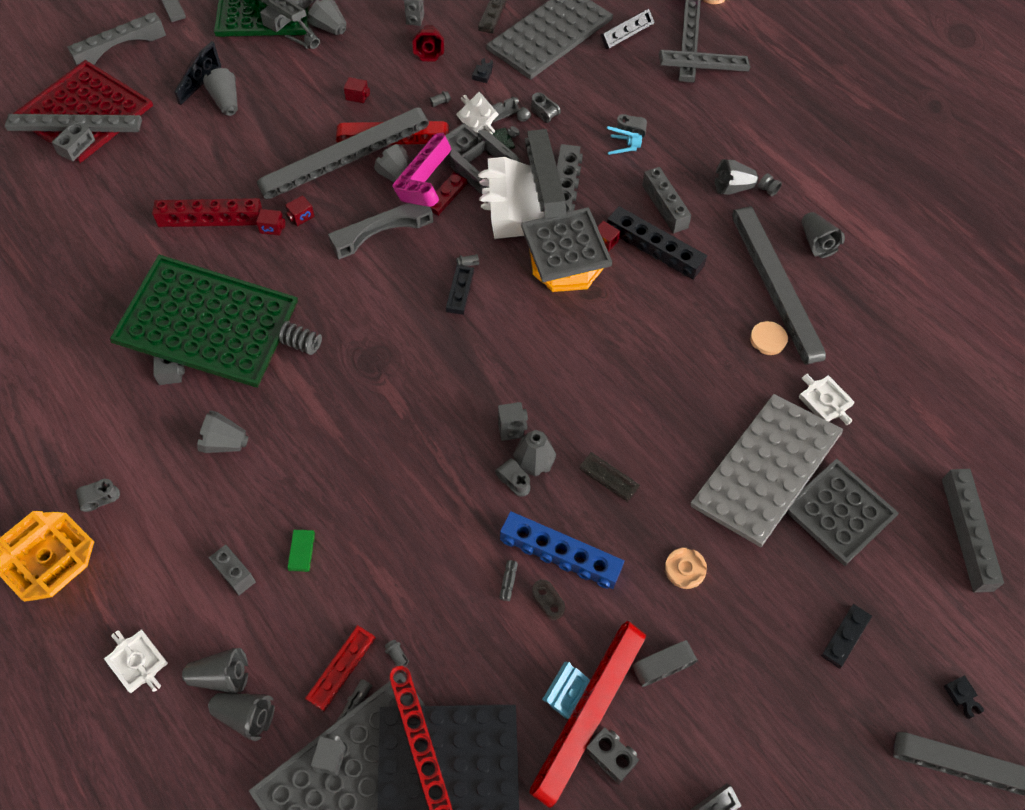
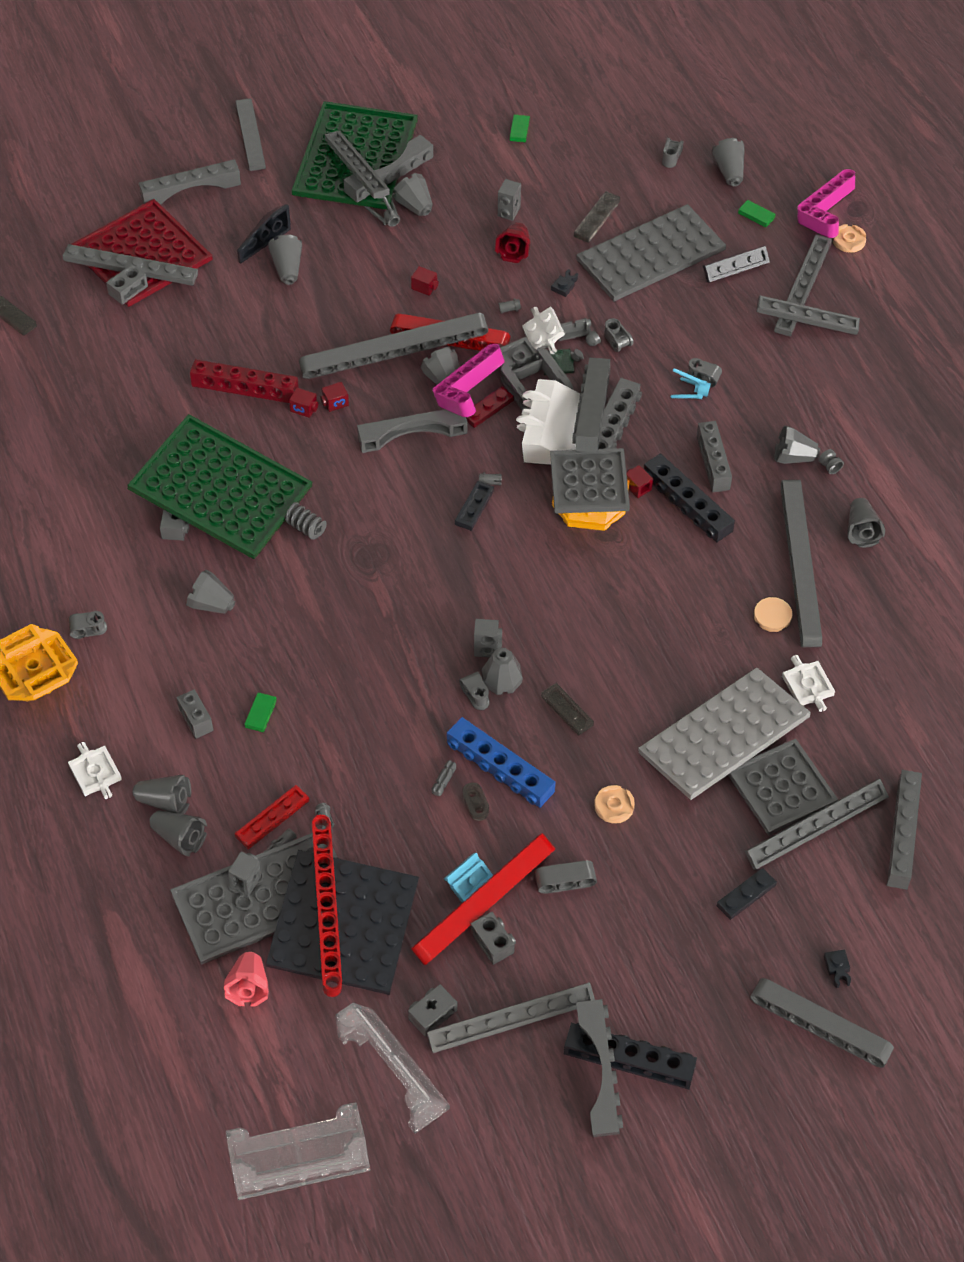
camera: 15 degrees right, 5 degrees down
(886, 545) = (816, 824): none -> dark grey plate

